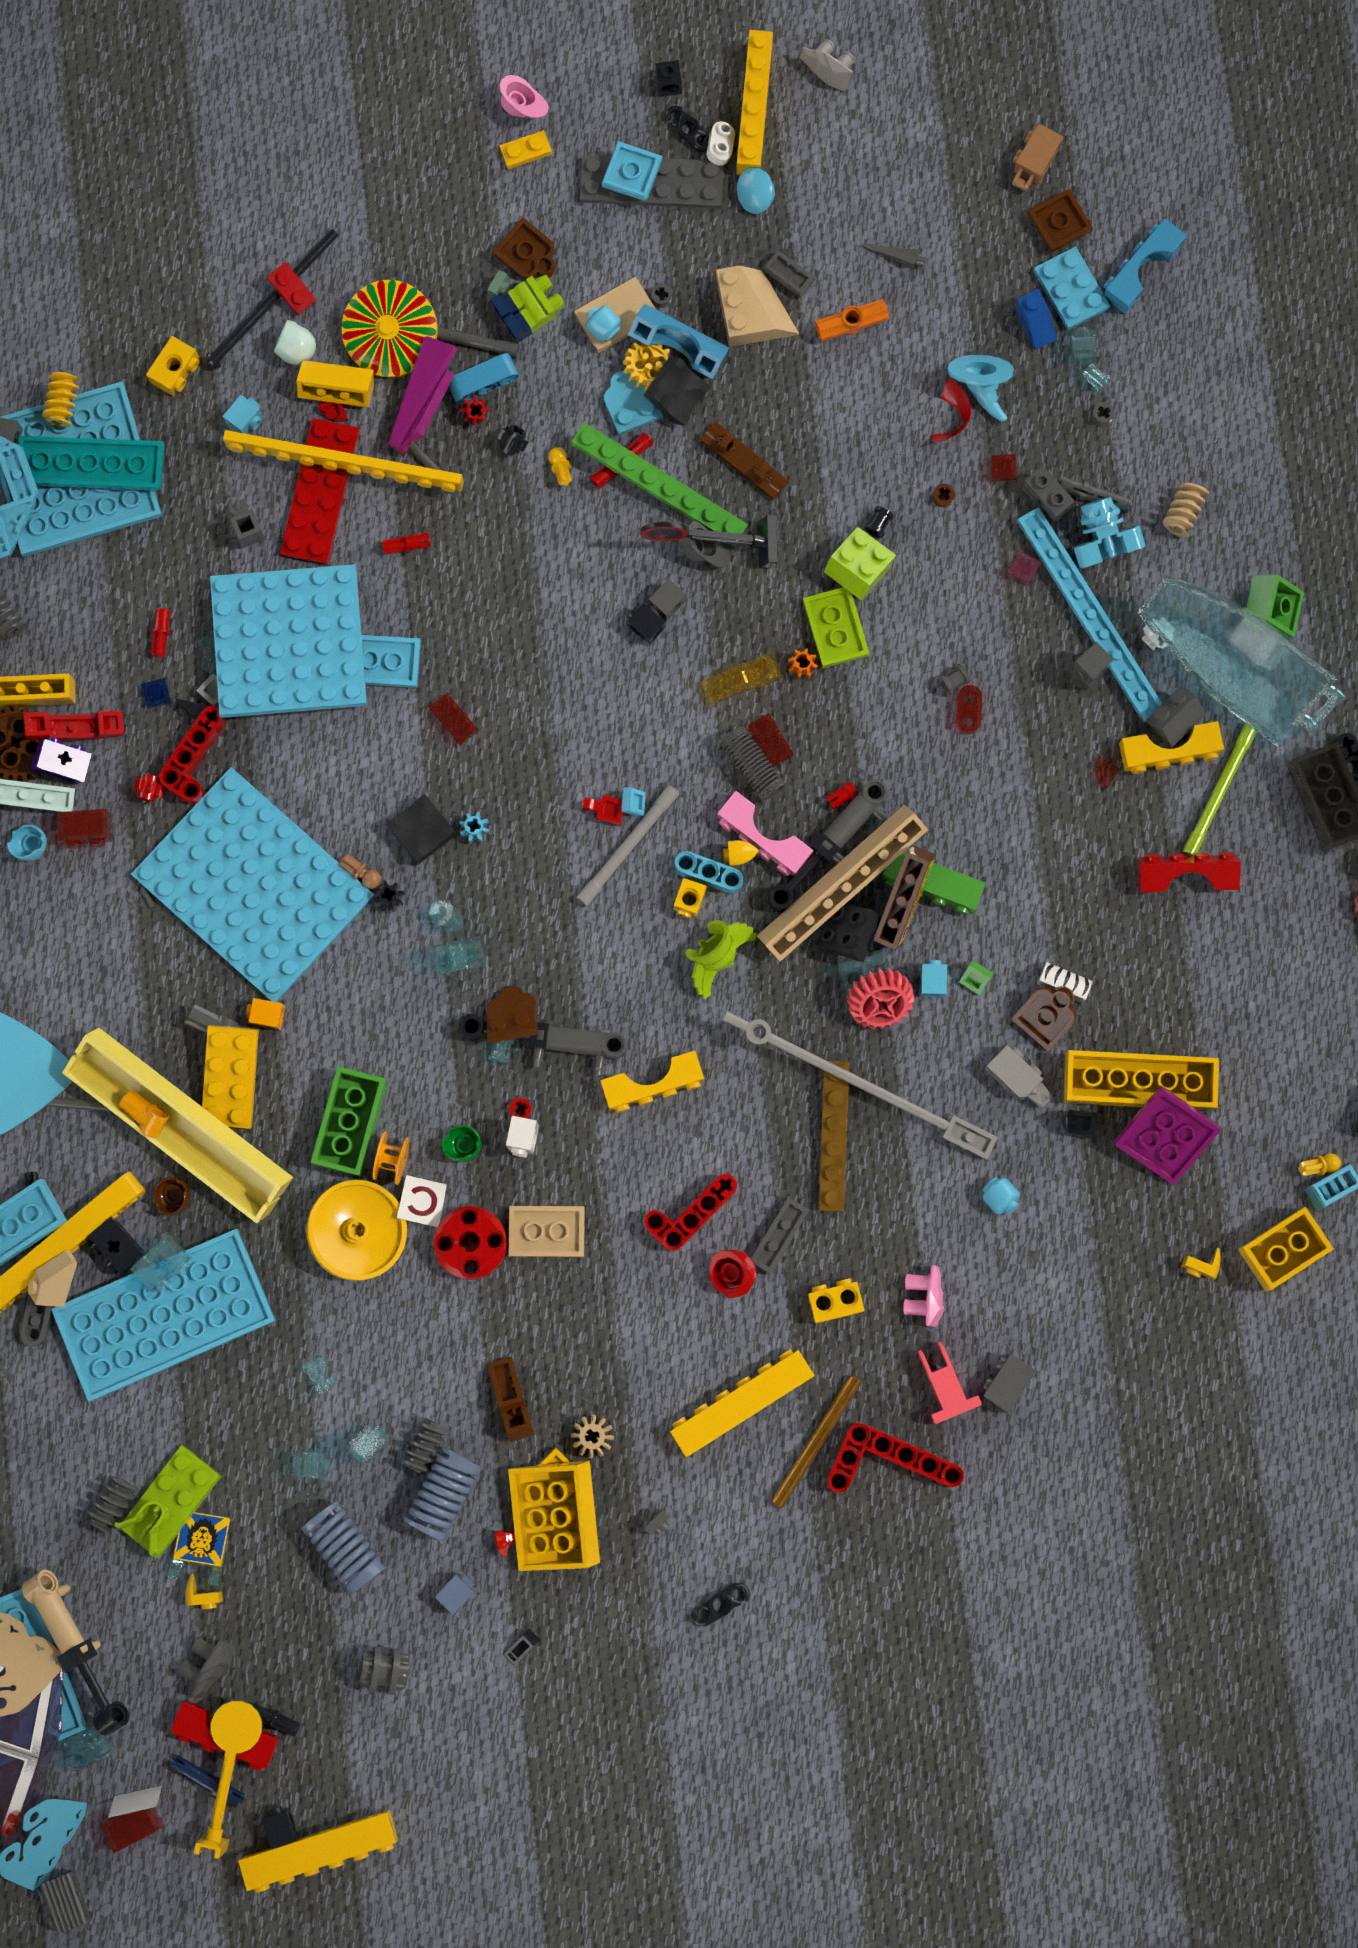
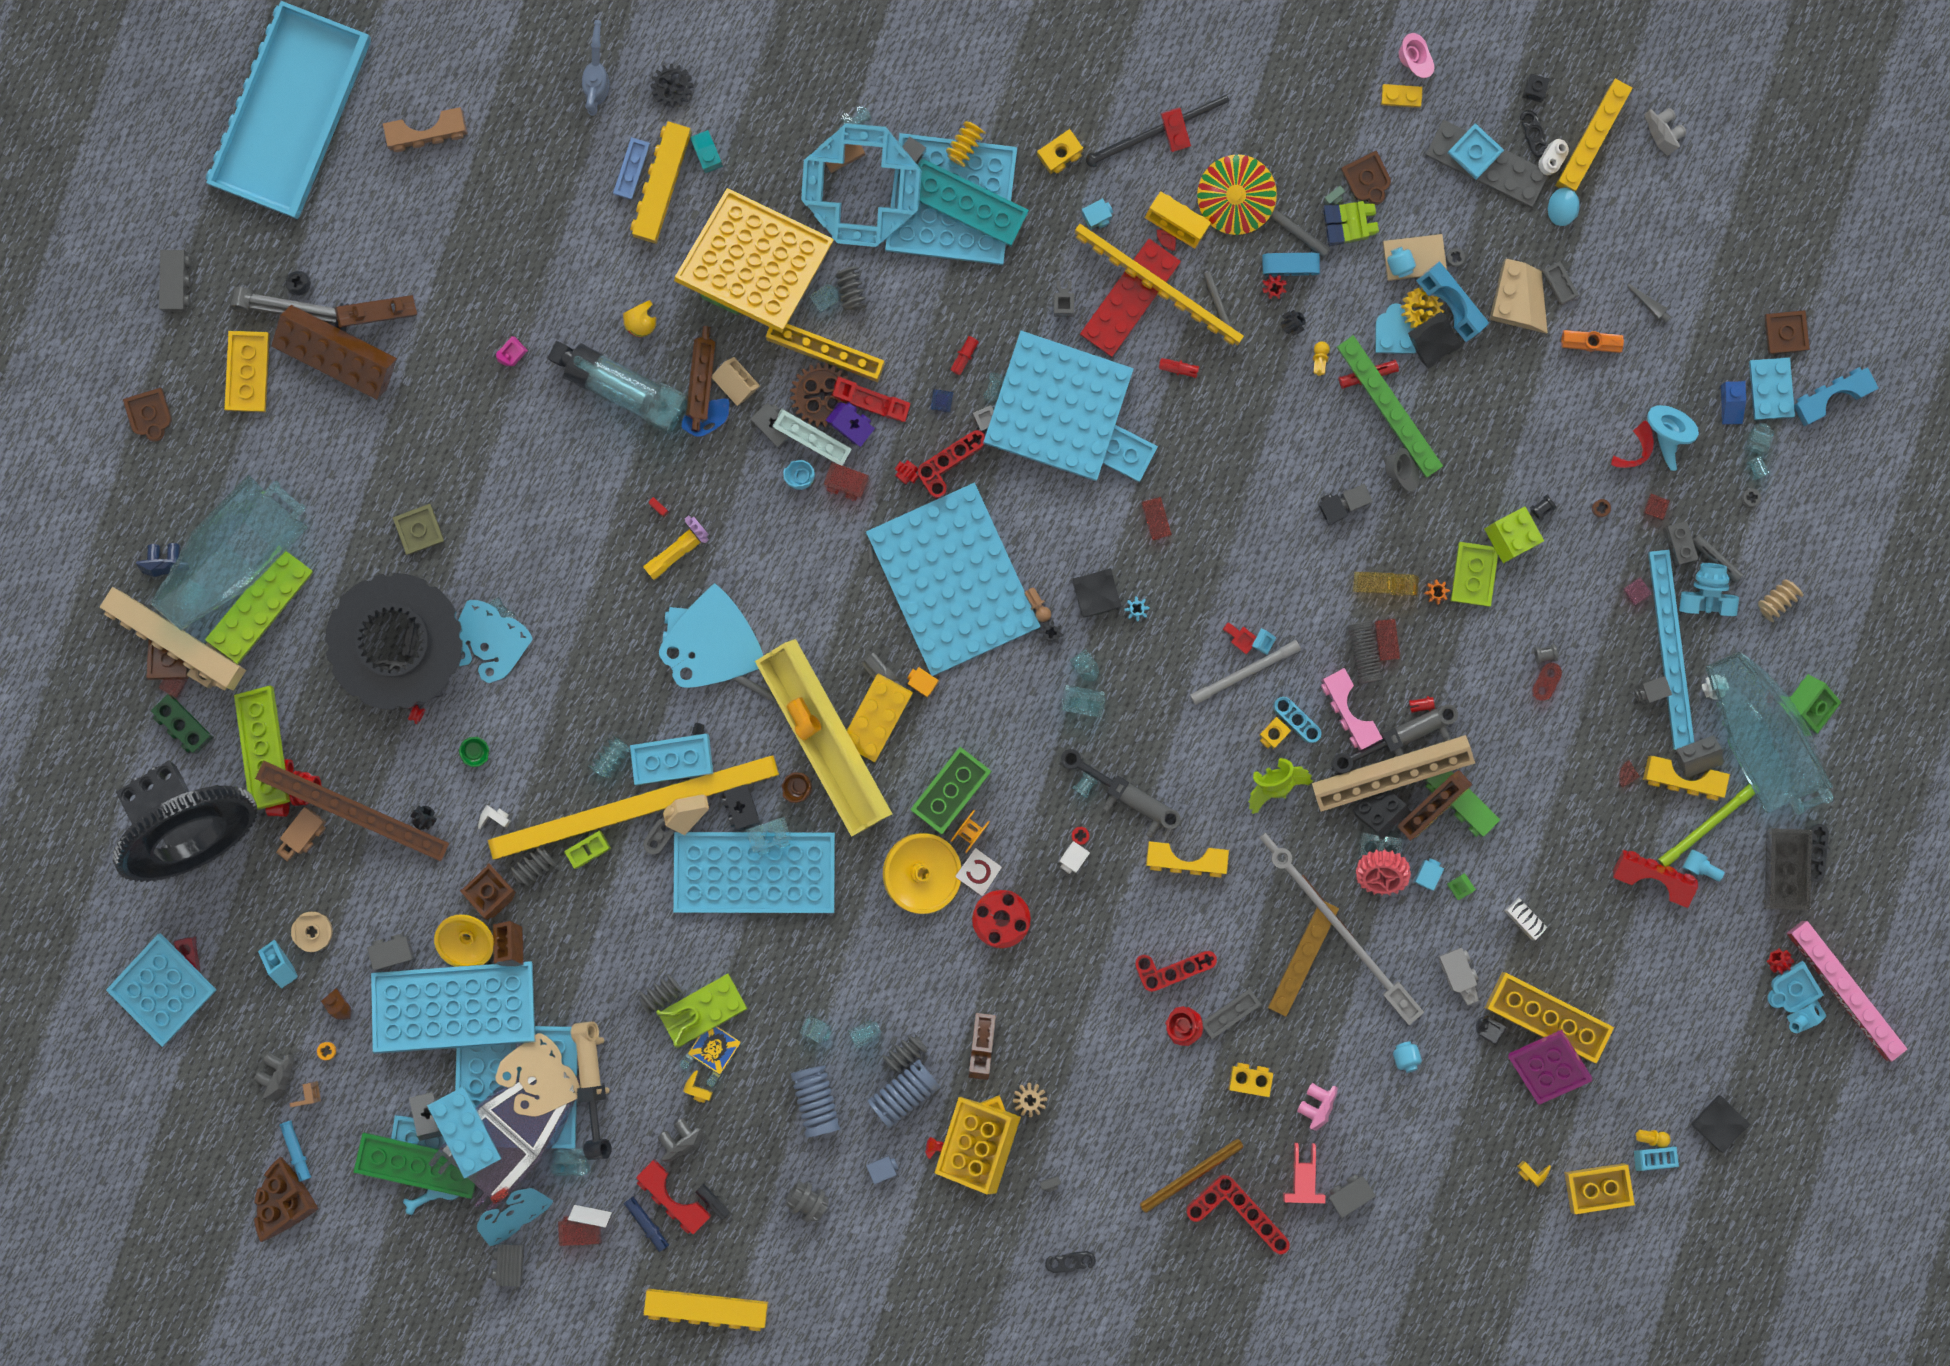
camera: 20 degrees right, 5 degrees up
(191, 708) = (964, 425): black piece -> none
(235, 1730) = (683, 1197): yellow piece -> none
(279, 1827) = (685, 1280): black brick -> none
(295, 344) = (1159, 174): light aqua helmet -> none
(313, 1369) = (846, 961): clear light blue piece -> none
(423, 393) = (1241, 258): magenta wedge -> none
(469, 1145) = (1031, 845): green hair -> none
(511, 1015) = (1104, 764): reddish brown plate -> none
(521, 1647) = (913, 1228): black piece -> none
(546, 1231) = (1061, 935): tan plate -> none
(739, 853) = (1325, 716): yellow plate -> none
(741, 1403) = (1149, 1124): yellow brick -> none
(744, 460) = (1462, 414): reddish brown hinge -> none
(765, 539) = (1450, 484): black piece -> none
(1036, 156) = (1791, 274): medium nougat brick -> none
(1047, 1015) = (1501, 938): reddish brown plate -> none
(1229, 837) = (1698, 864): none -> medium azure pin

